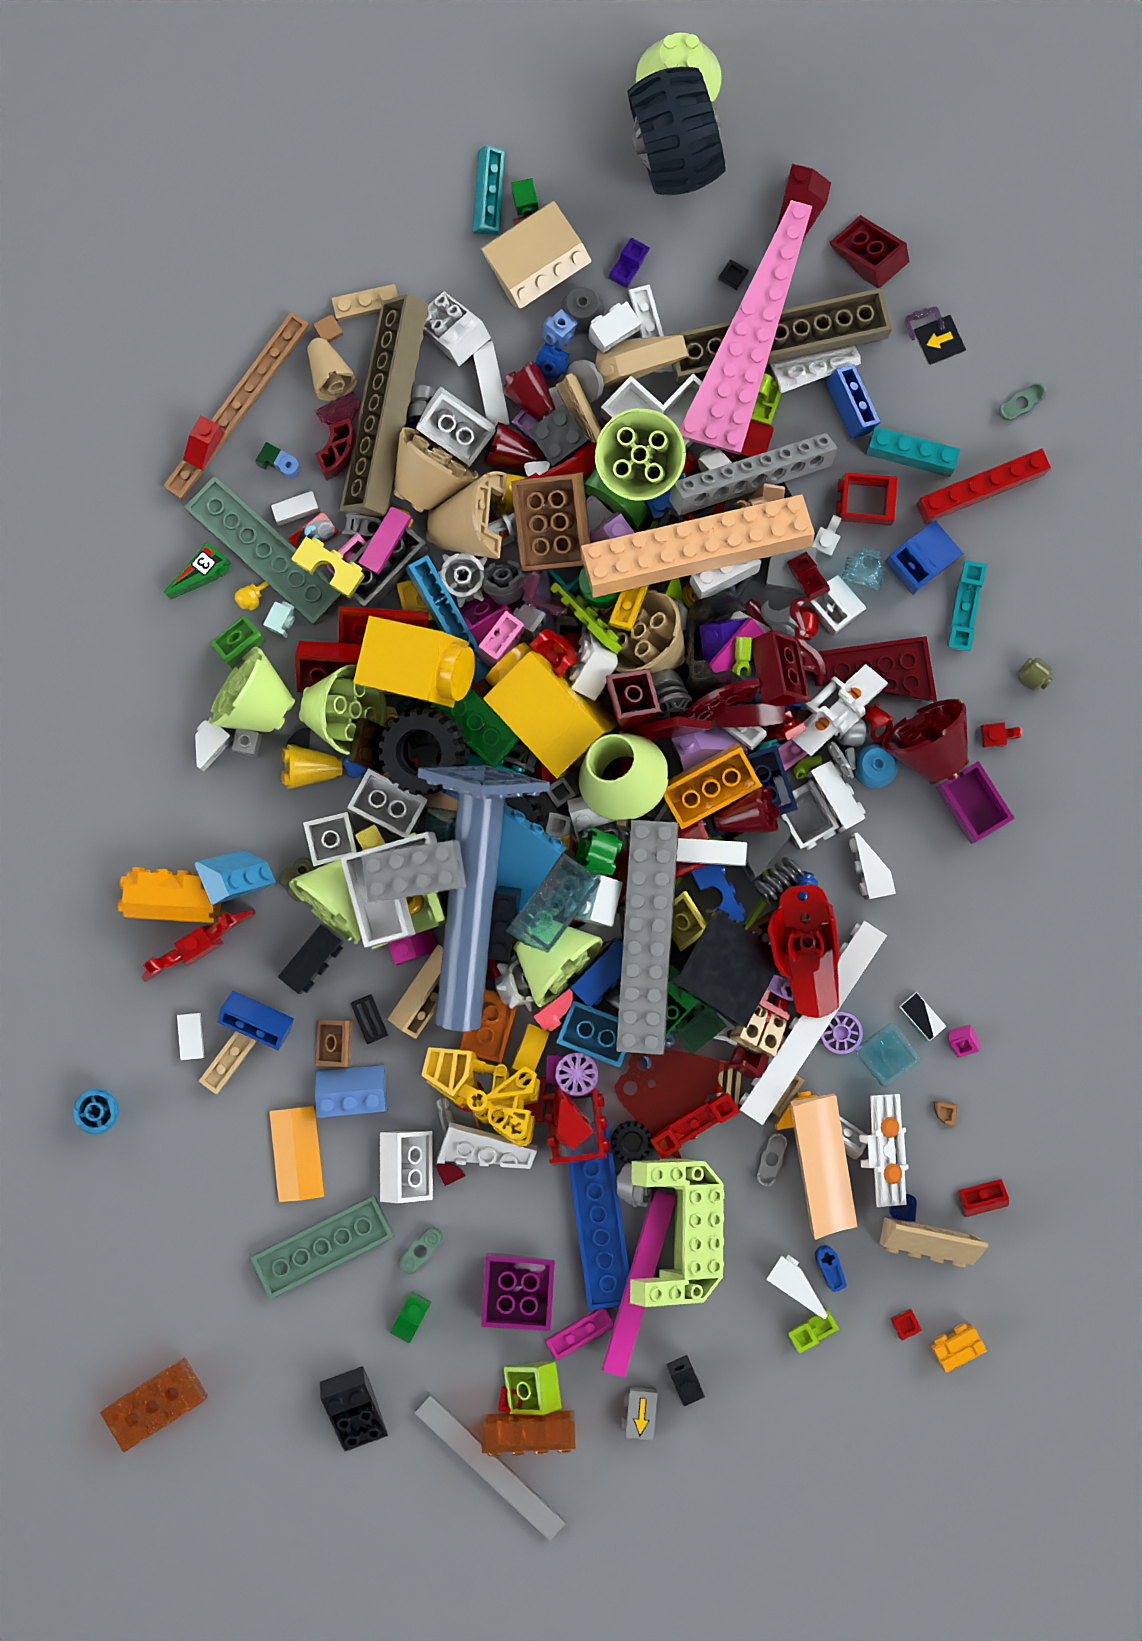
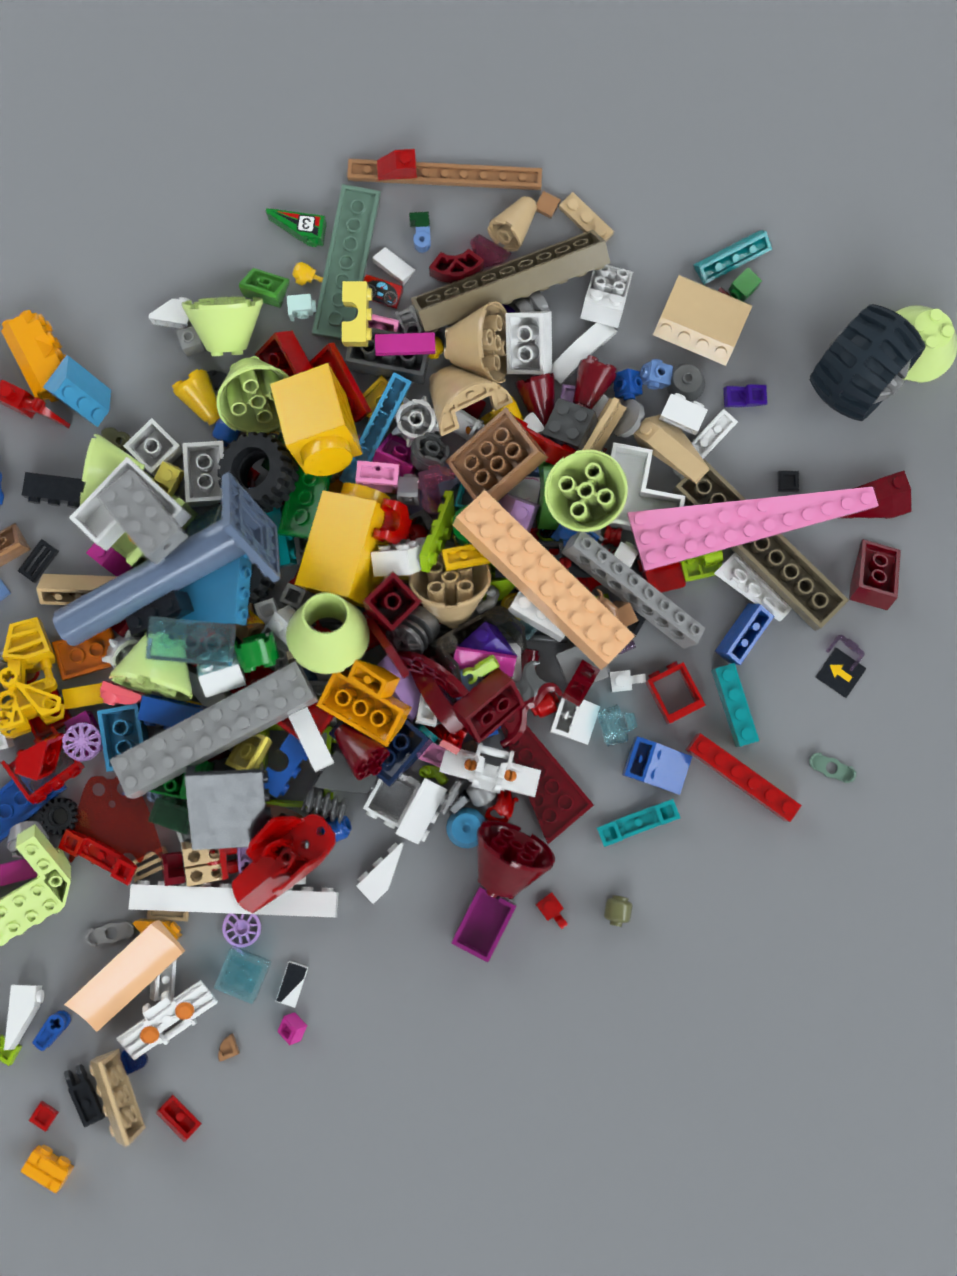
camera: 60 degrees right, 0 degrees up
(365, 745) = (237, 425): dark brown plate -> none
(692, 758) = (373, 679): none -> light orange slope
(912, 1274) = (84, 1097): none -> black hinge

